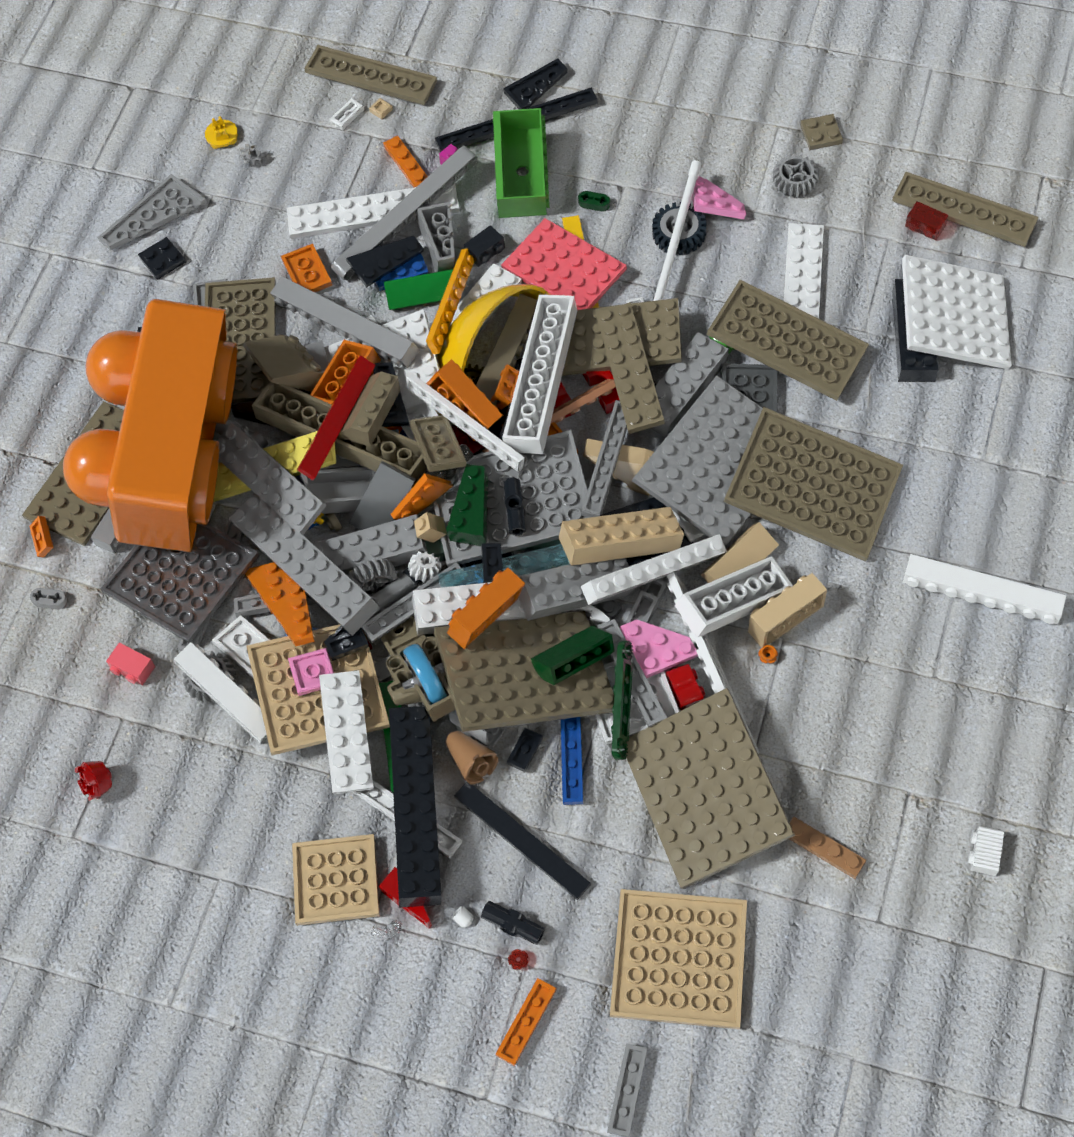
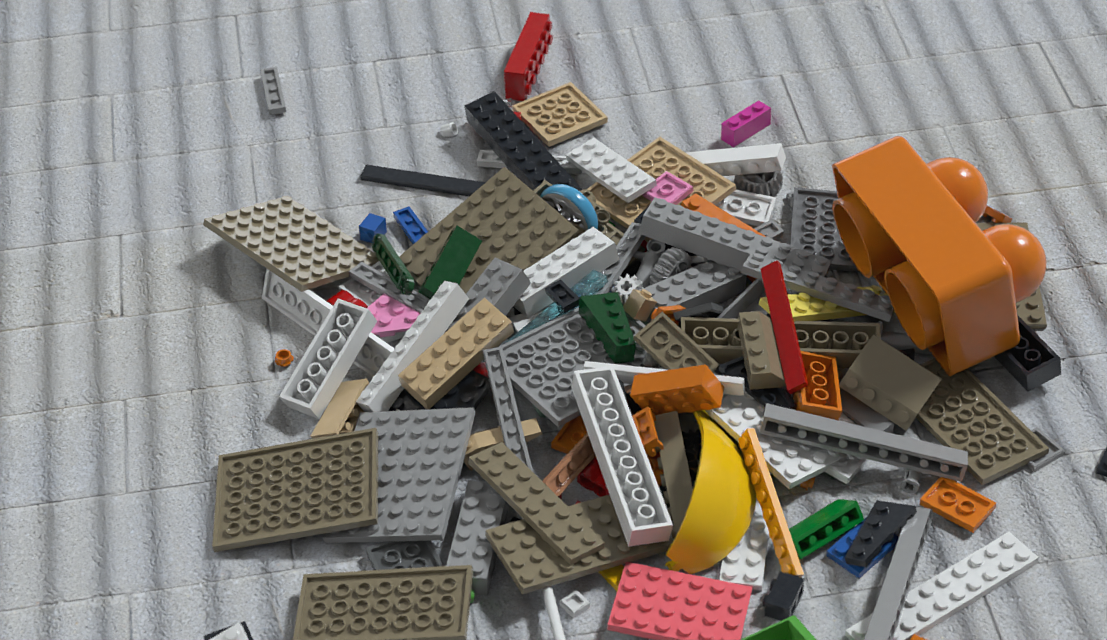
camera: 150 degrees right, 20 degrees down
(94, 779) = (790, 93): red cone -> none
(130, 664) = (823, 162): coral brick -> none
(165, 761) = (746, 123): none -> dark pink brick
(317, 983) = (528, 56): none -> red brick
(437, 232) = (840, 581): light grey wedge -> none
(485, 607) = (538, 238): orange brick -> none
(512, 922) = (407, 136): black piece -> none
(515, 515) = (570, 338): black piece -> none
(518, 965) = (391, 123): clear red plate -> none
(525, 1022) = (366, 96): orange plate -> none
(614, 788) = (370, 226): none -> blue brick
(679, 959) = (269, 161): tan plate -> none
(787, 610) = (266, 386): tan brick -> none
(826, 848) = (181, 257): medium nougat plate -> none
(984, 589) = (95, 471): white brick -> none
(986, 850) = (42, 294): white brick -> none

